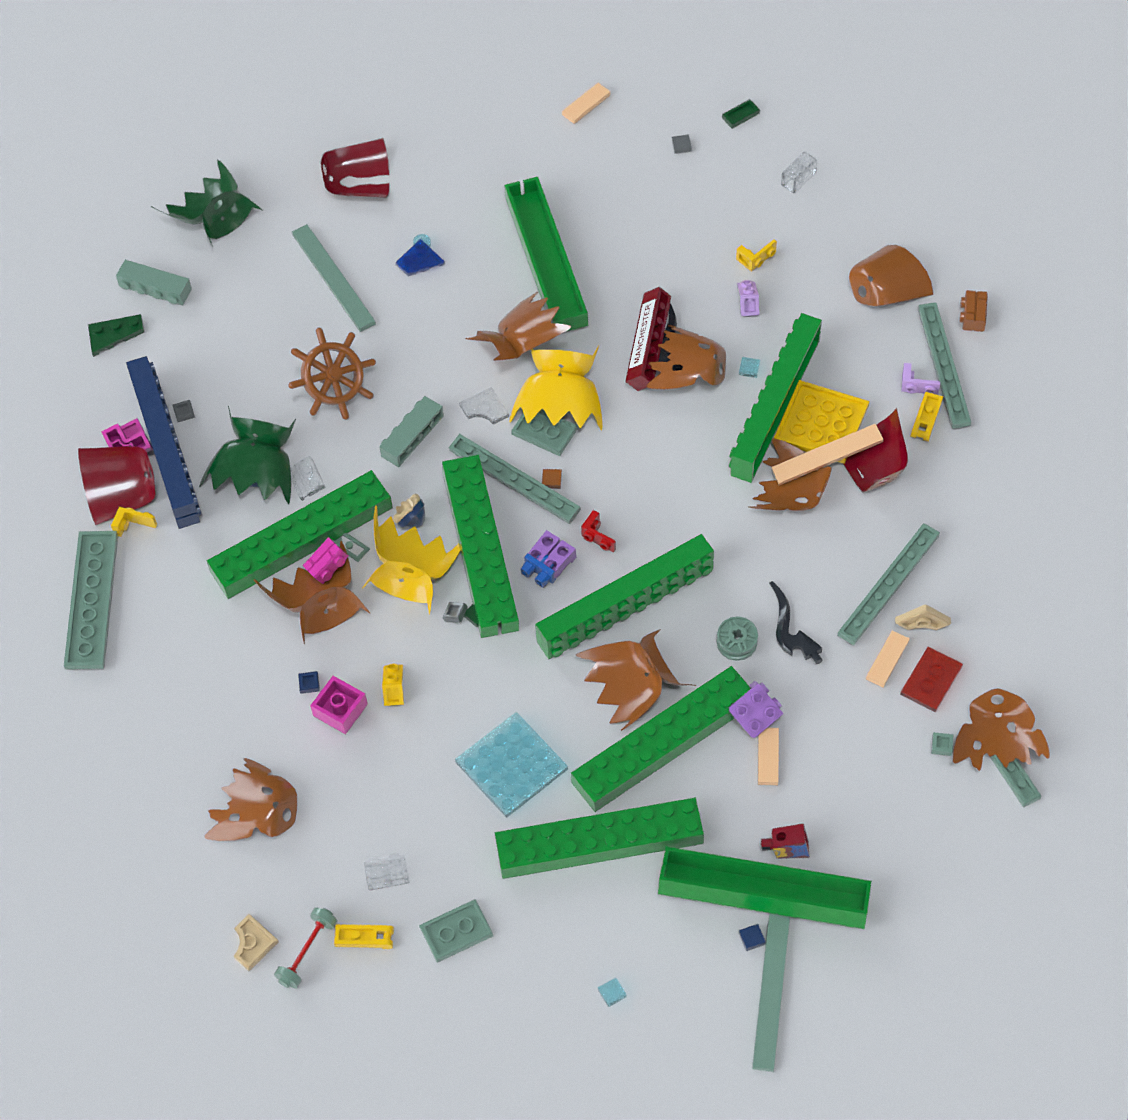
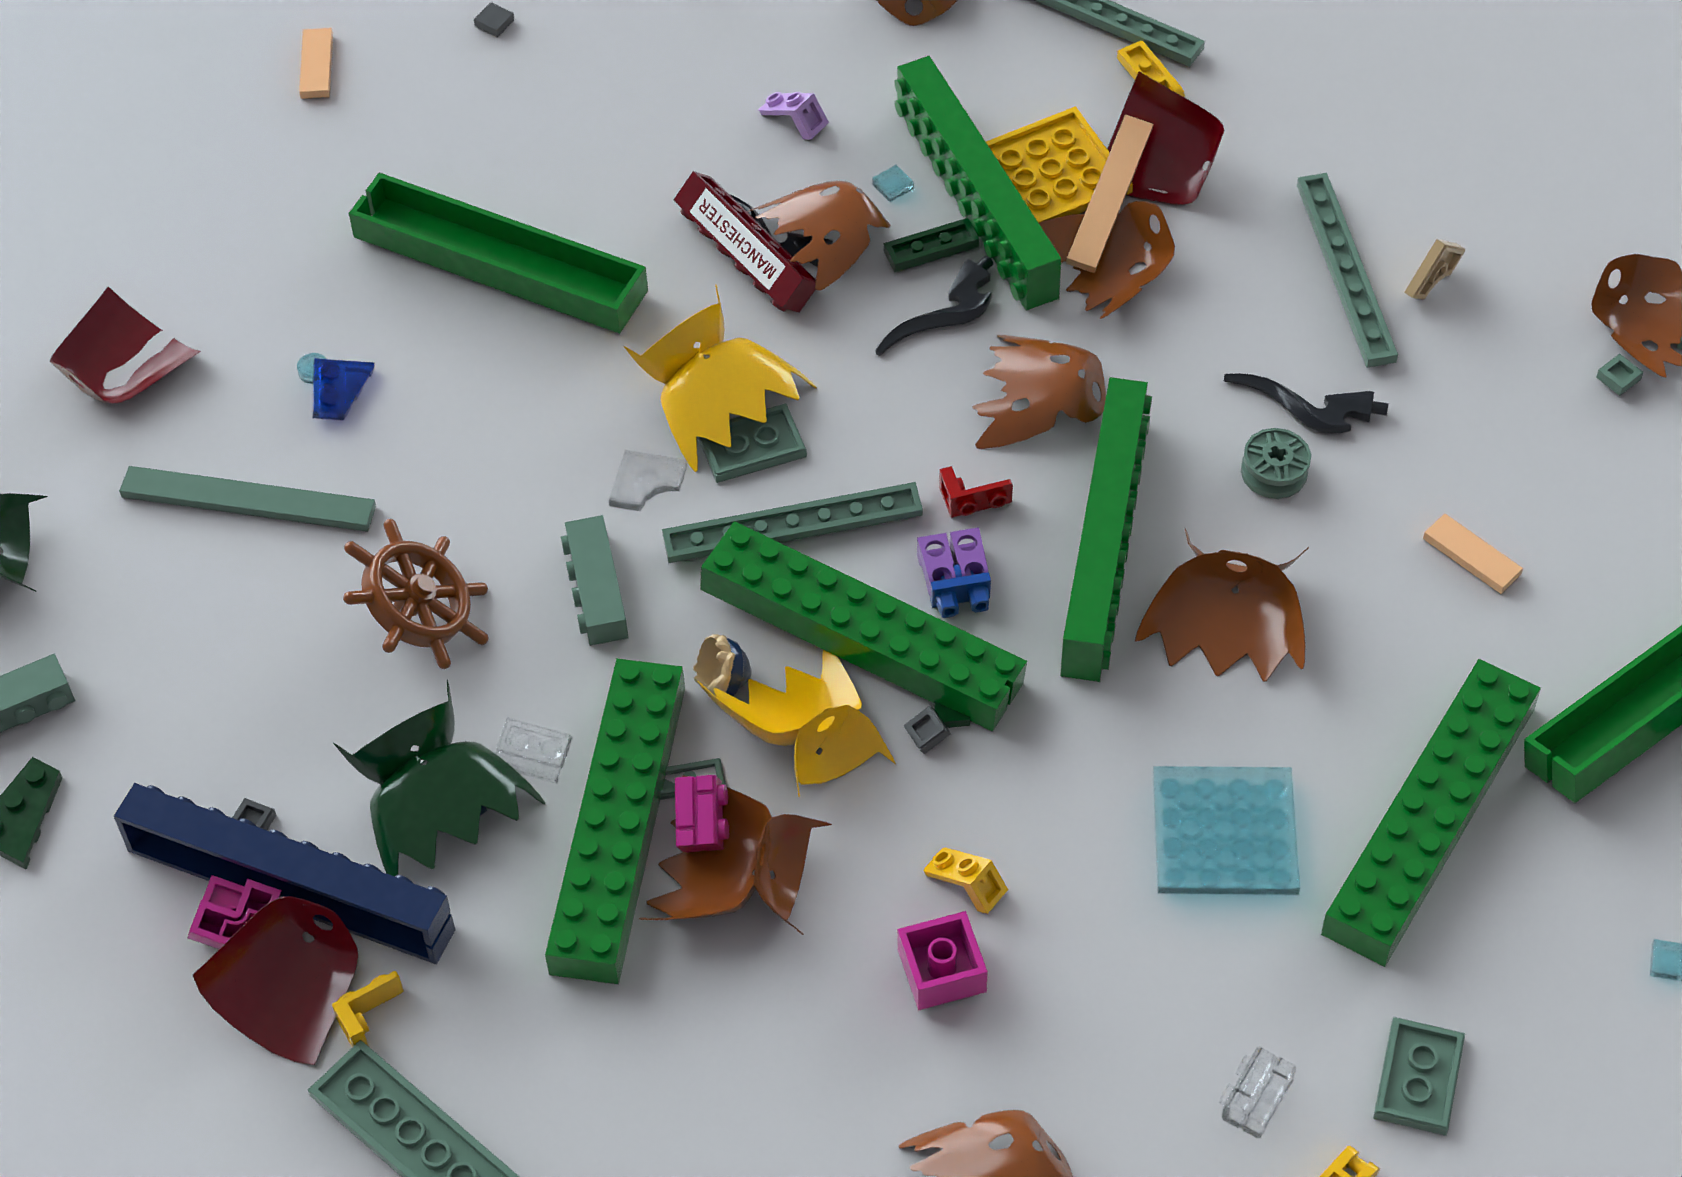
camera: 50 degrees left, 5 degrees down
(309, 682) = (858, 977): dark blue tile -> none
(525, 327) = (599, 334): dark orange piece -> none
(552, 478) = (833, 484): dark orange tile -> none
(659, 740) = (1349, 642): green brick -> none
(683, 512) = (1045, 384): none -> dark orange piece
(707, 452) = (963, 290): none -> black piece
(724, 408) = (931, 245): none -> dark green plate
(752, 261) = (742, 73): yellow bracket -> none
(756, 709) = (1409, 508): medium lavender bracket -> none
(788, 842) = (1626, 612): dark red torso -> none
(887, 659) = (1448, 344): light nougat tile -> none
(913, 385) = (1086, 58): lavender bracket -> none
(931, 679) = (1516, 324): clear red tile -> none

